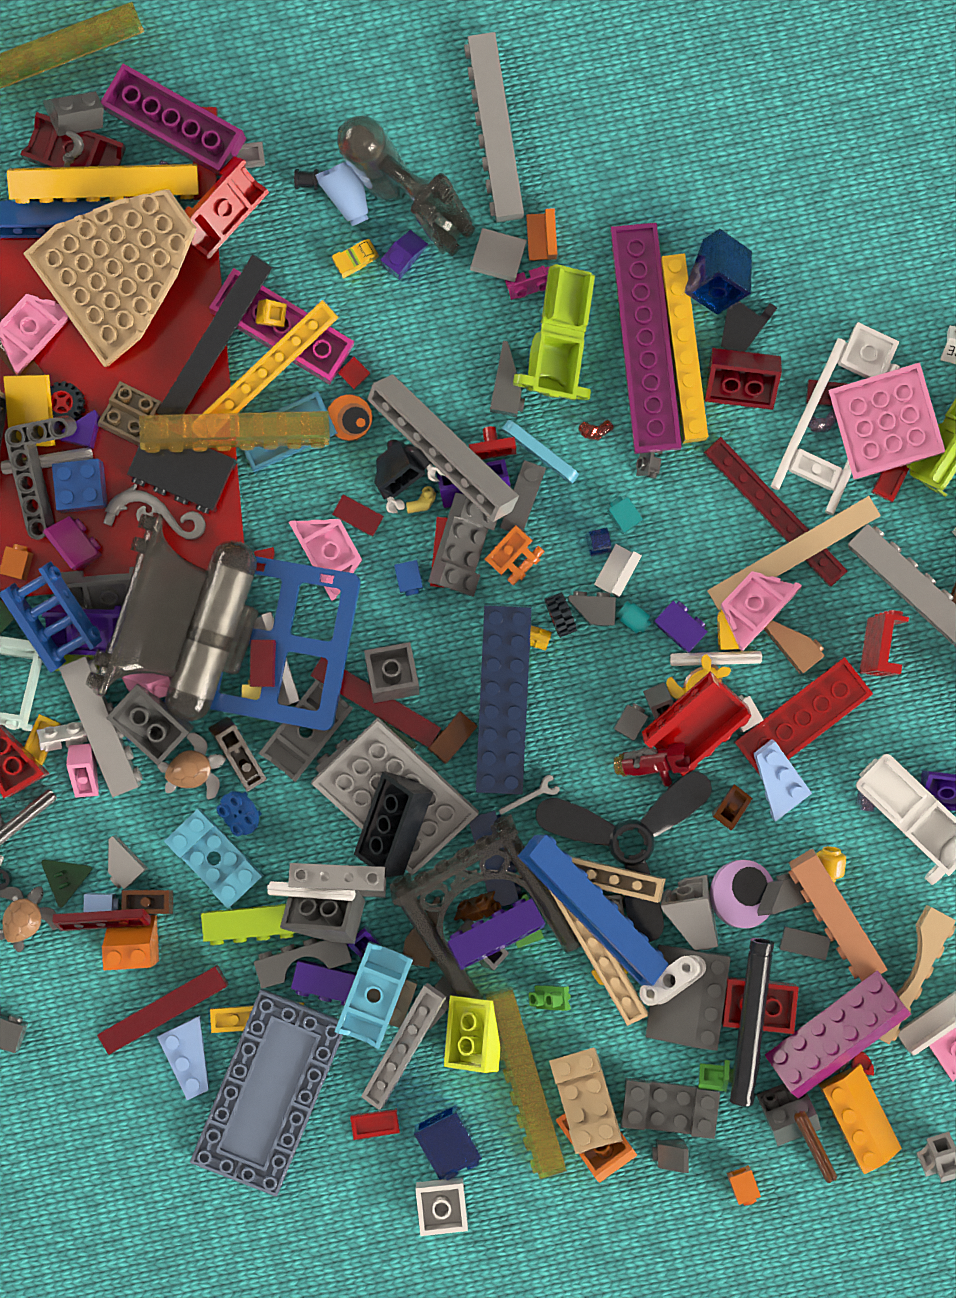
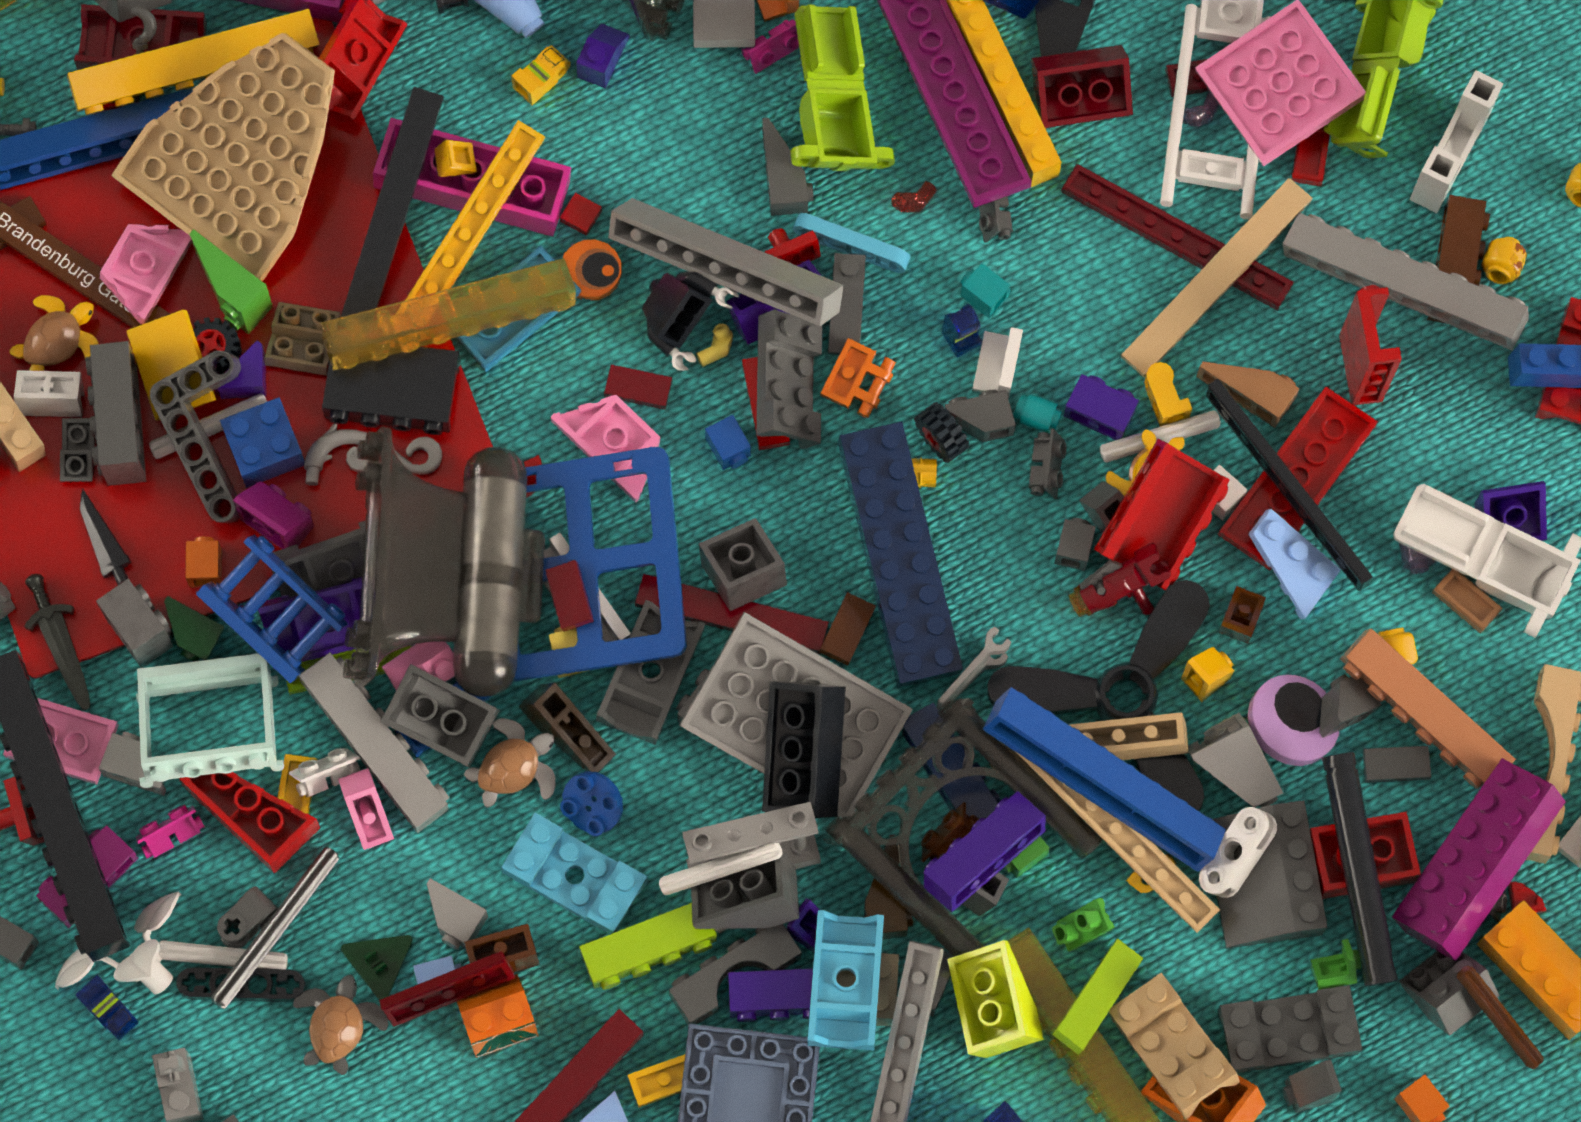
camera: 15 degrees left, 15 degrees down
(87, 369) = (239, 293): none -> bright green slope
(544, 1051) = (1097, 996): none -> lime tile
(635, 647) = (1050, 450): none -> dark grey hinge
(694, 843) = (1207, 672): none -> yellow slope
(755, 605) = (1189, 348): bright pink wing -> none
(793, 726) = (1288, 485): none -> black tile
(893, 841) = (1467, 600): none -> medium nougat tile

